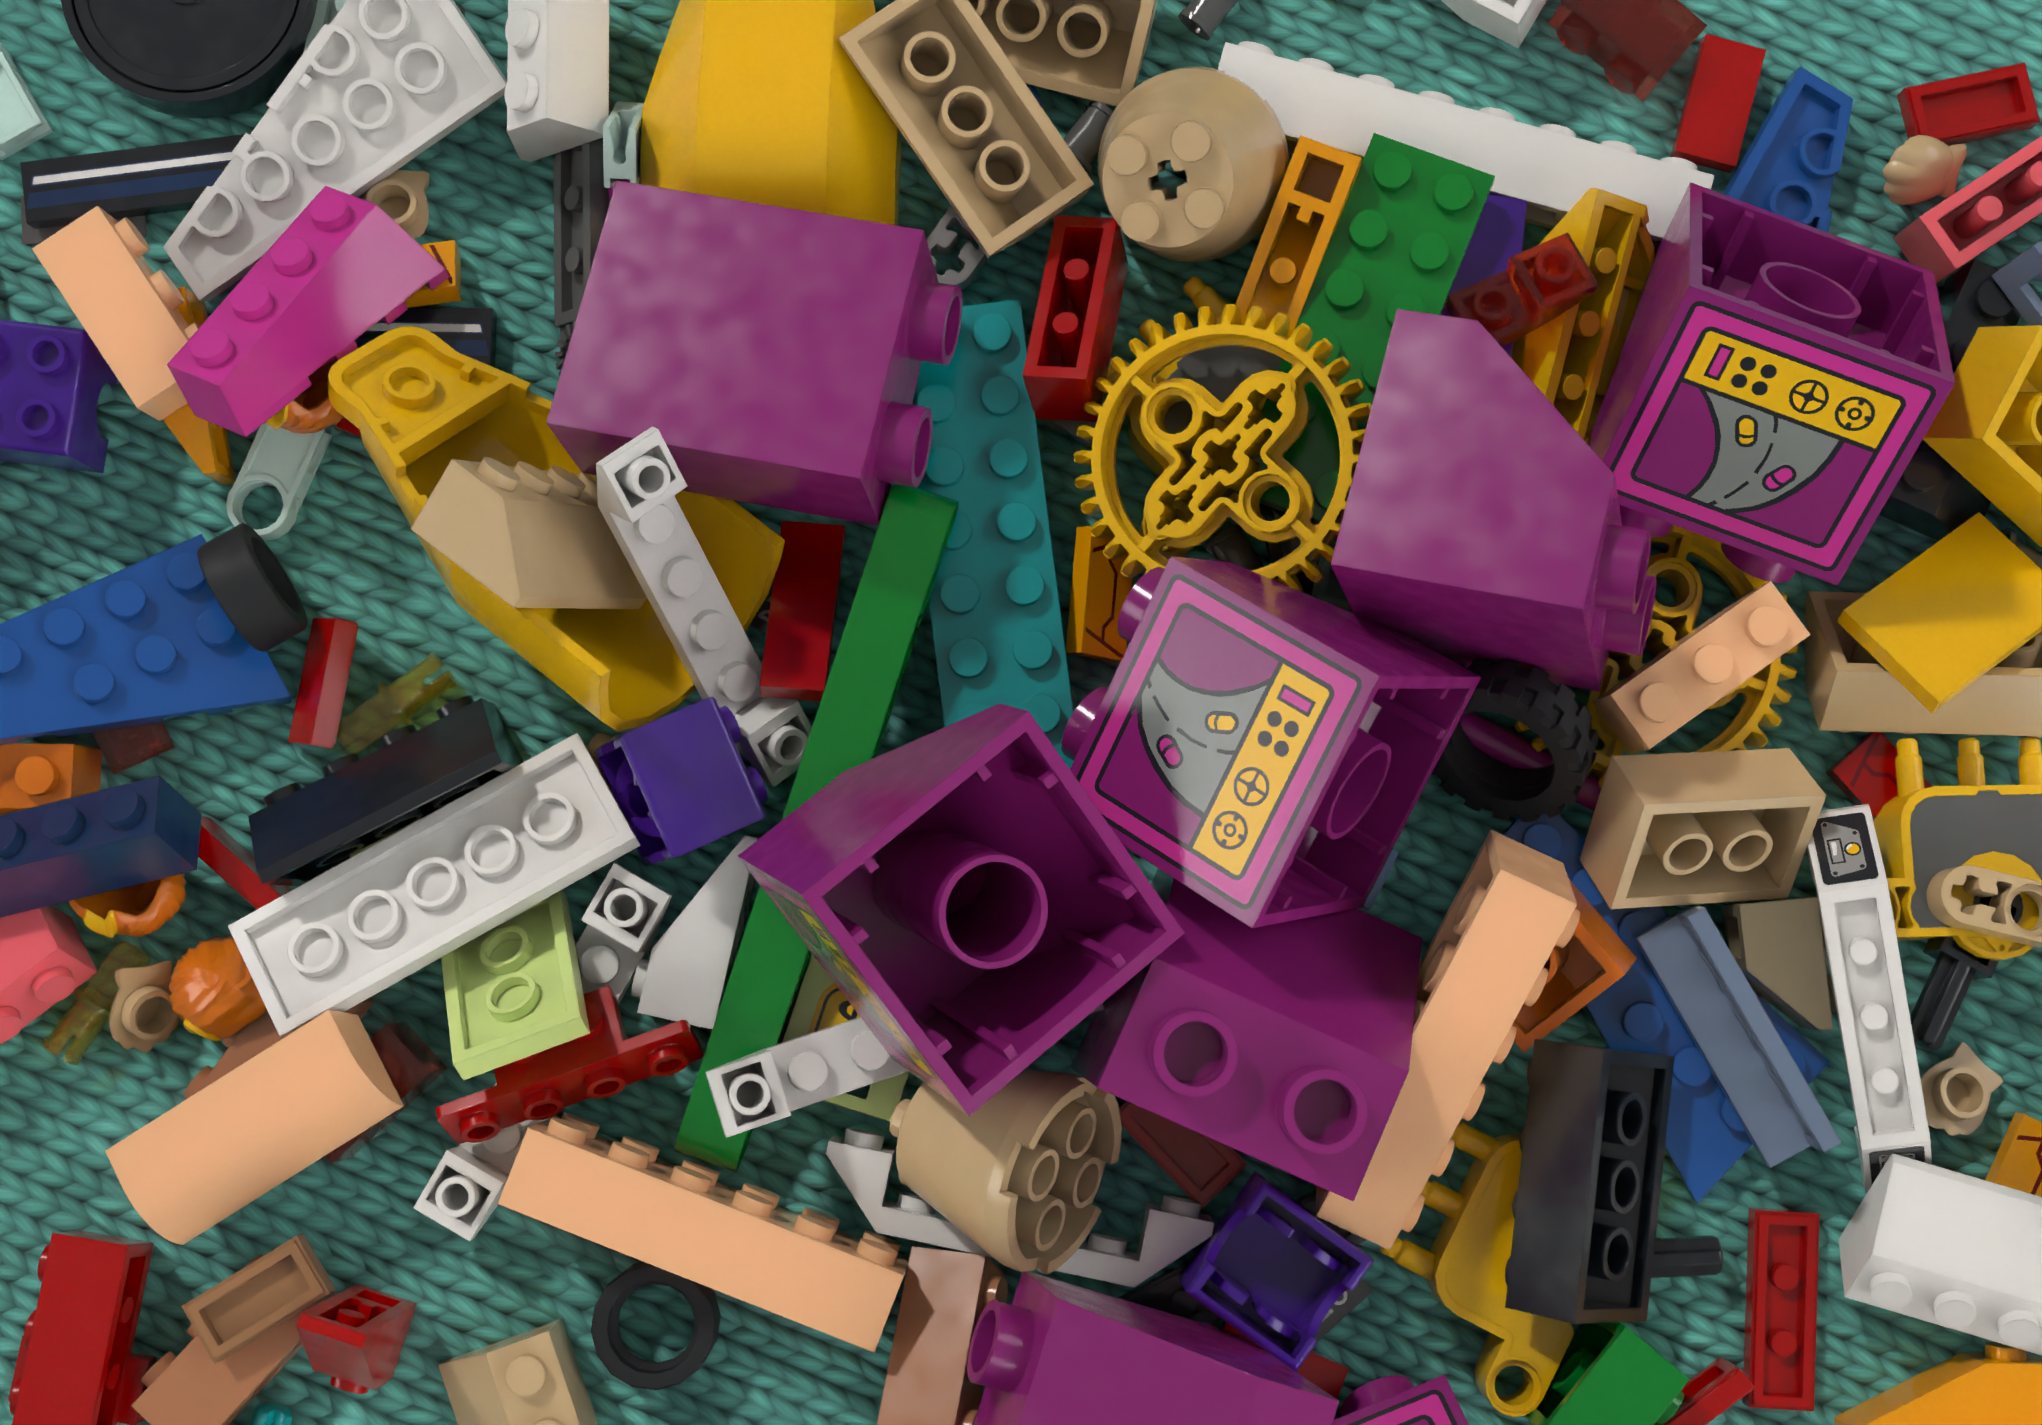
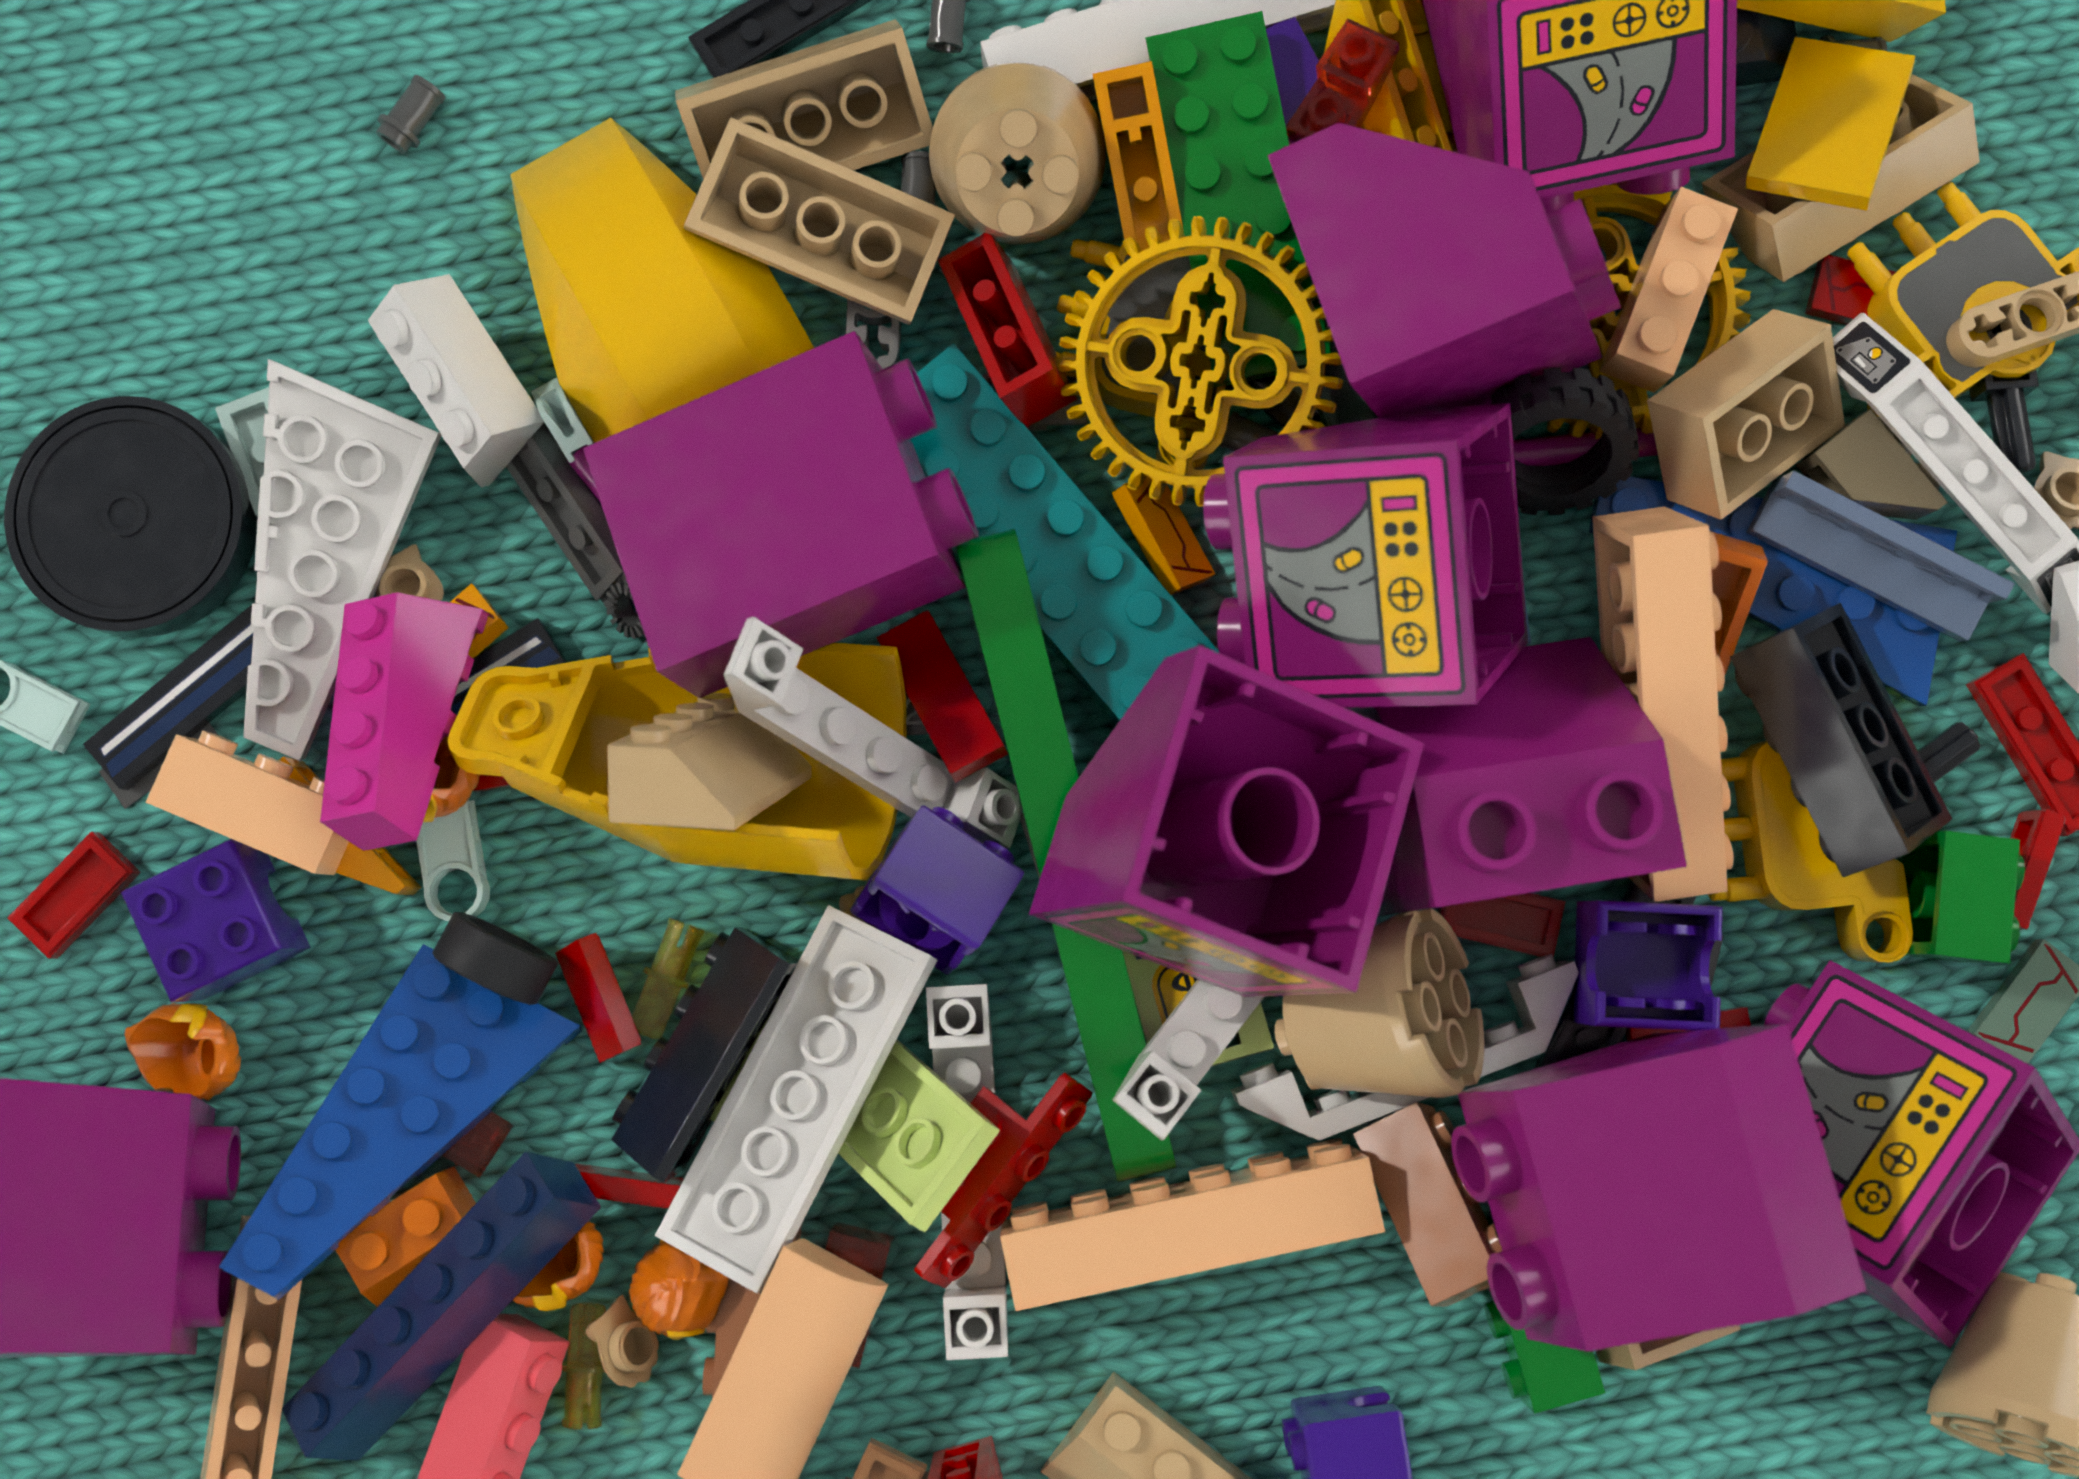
camera: 30 degrees left, 0 degrees up
(629, 1367) = (1194, 1373): black tyre -> none
(699, 949) = (1034, 1020): white slope -> none

